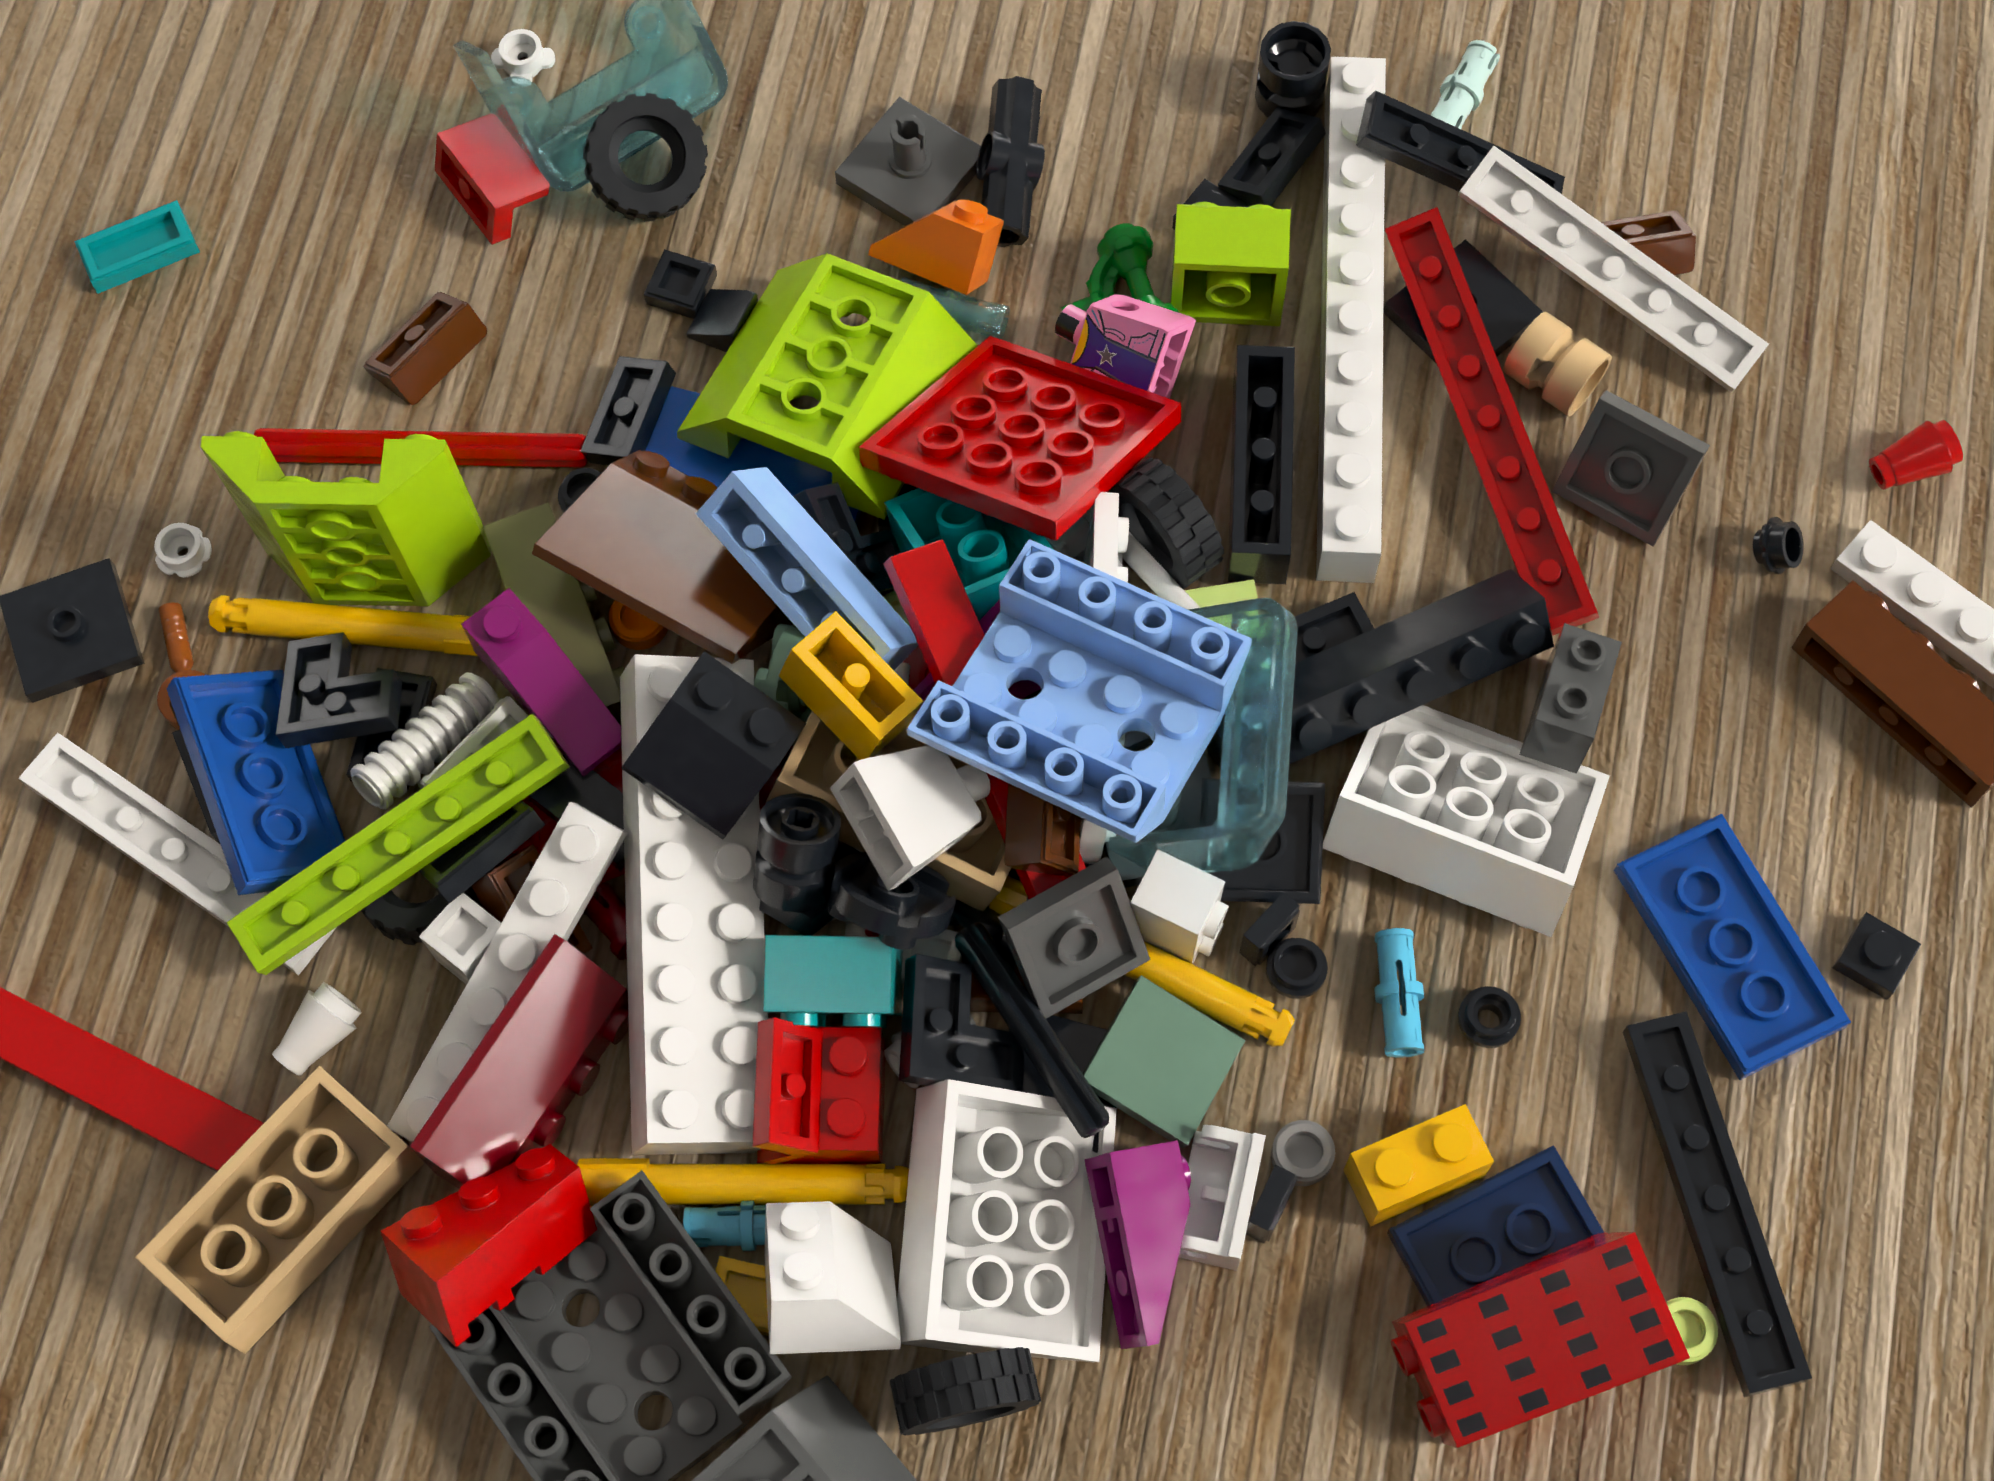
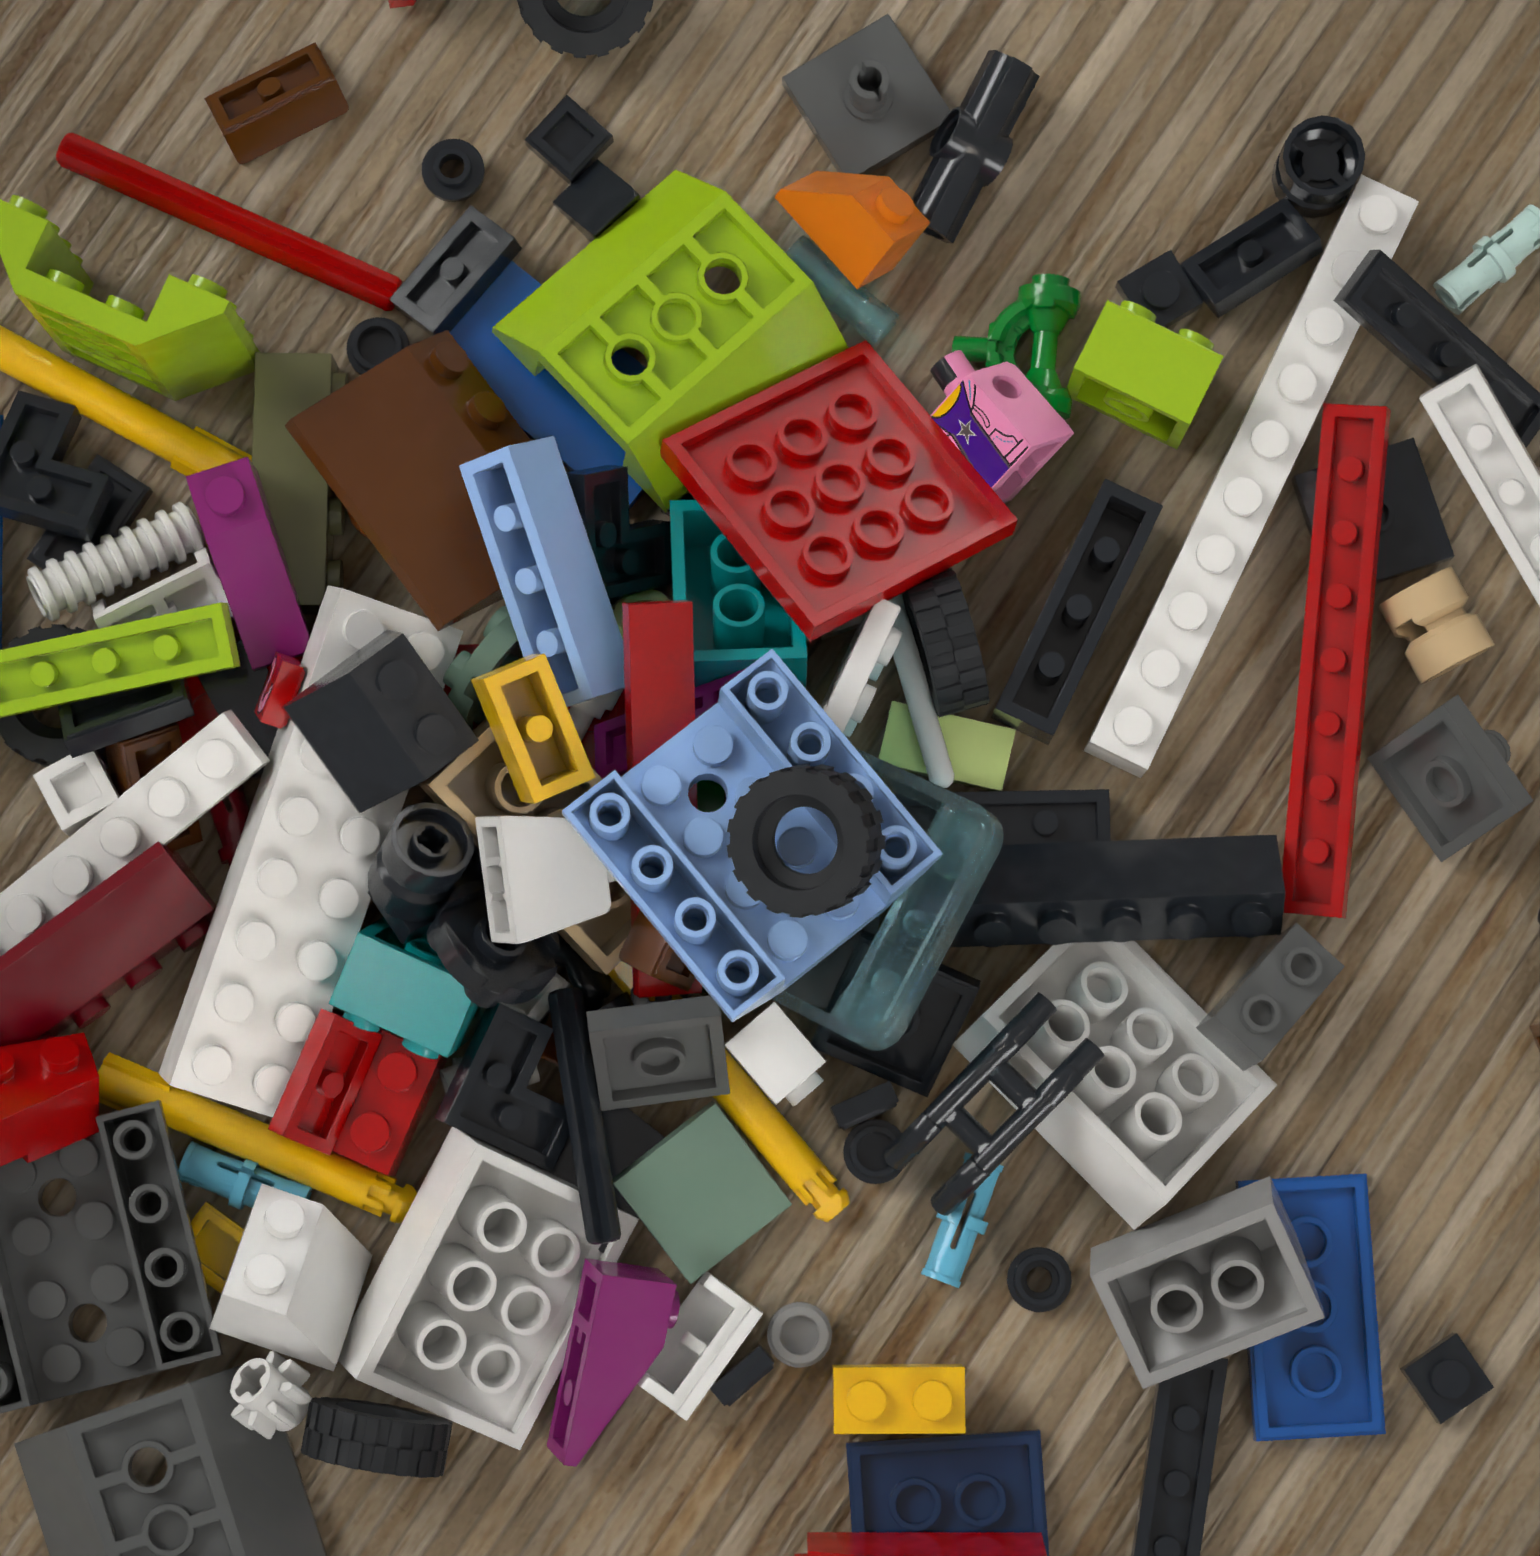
camera: 20 degrees right, 15 degrees up
(597, 352) = (456, 188): none -> black plate
(611, 780) = (279, 688): none -> red tile
(851, 1391) = (270, 1394): none -> white gear
(1082, 659) = (754, 840): none -> black tyre
(1397, 906) = (993, 1066): none -> black piece
(1638, 948) = (1205, 1282): none -> light grey slope

